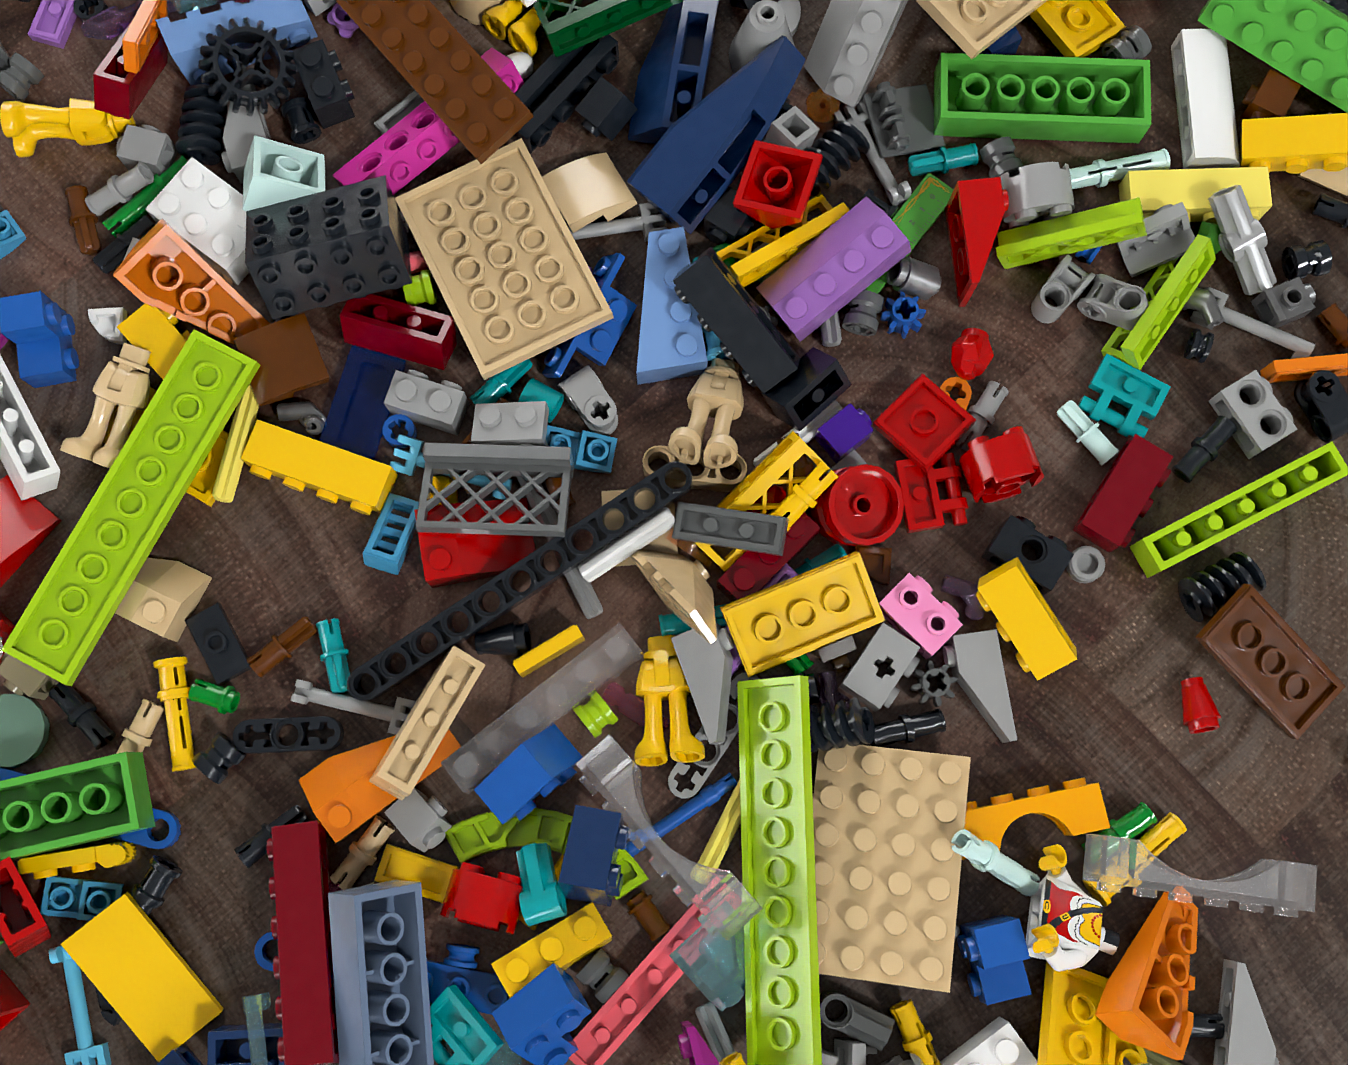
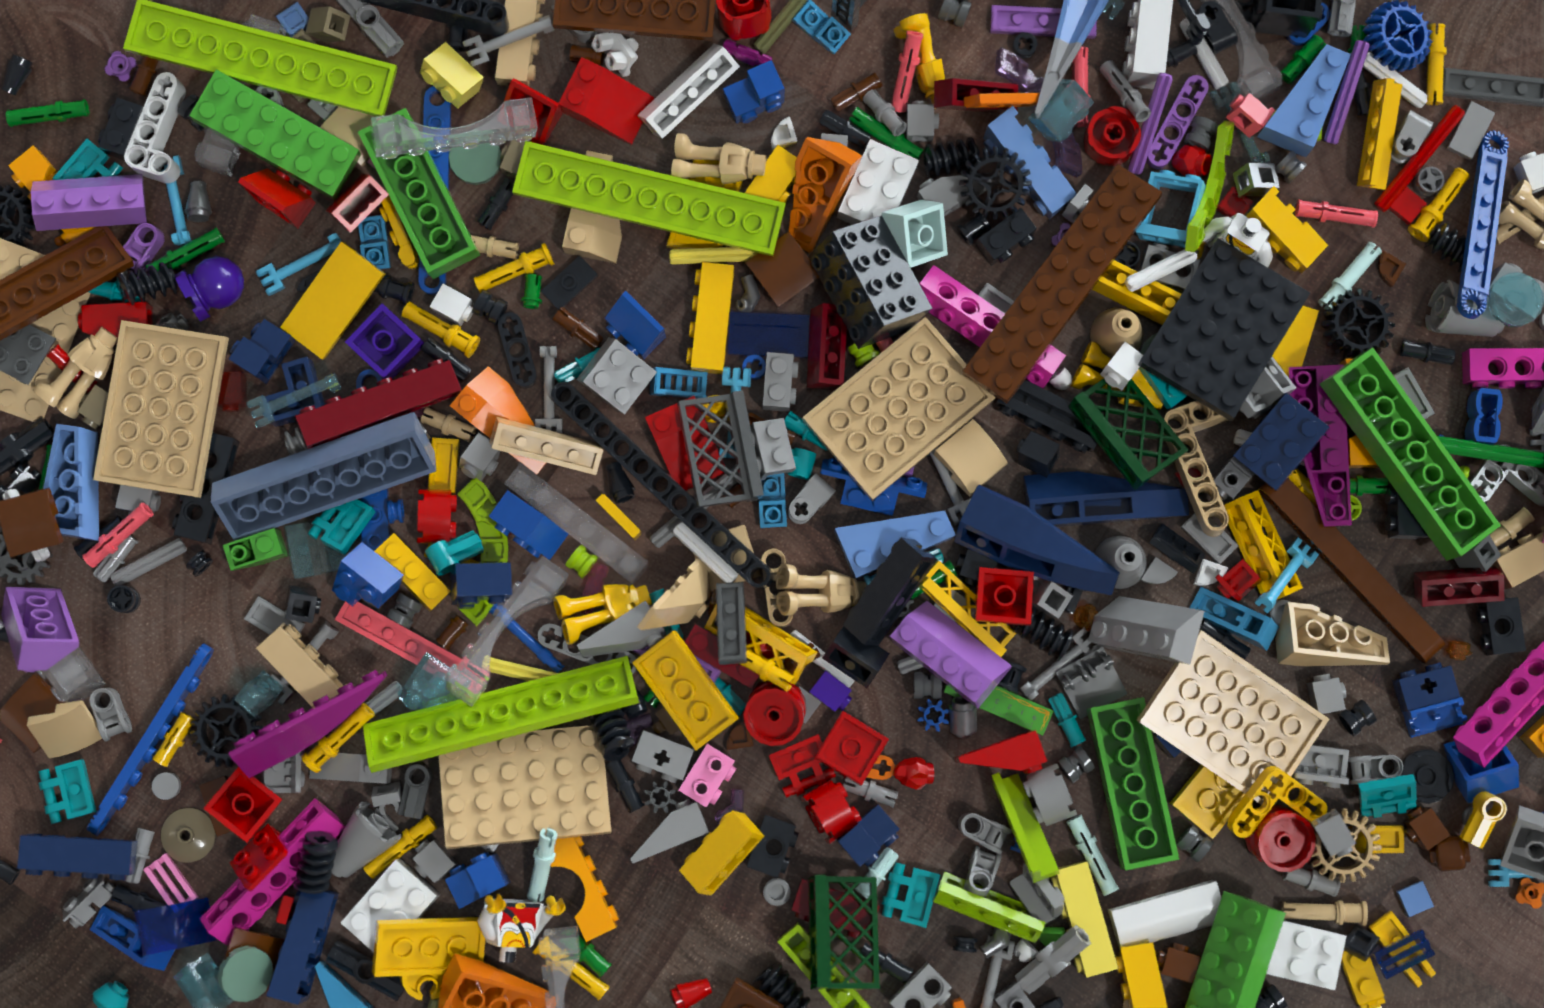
camera: 75 degrees right, 5 degrees up
(70, 144) = (913, 42): none -> coral pin
(200, 808) = (452, 305): none -> white brick
(222, 915) = (385, 342): none -> dark purple brick
(239, 820) = (451, 334): none -> yellow pin
(299, 567) = (634, 326): none -> blue slope
(359, 607) = (616, 375): none -> light grey brick
(955, 1015) = (433, 860): none -> light grey brick
(1050, 432) = (869, 835): none -> dark blue brick
(1167, 512) = (820, 932): none -> dark green fence
(1218, 274) = (1025, 951): none -> white hinge

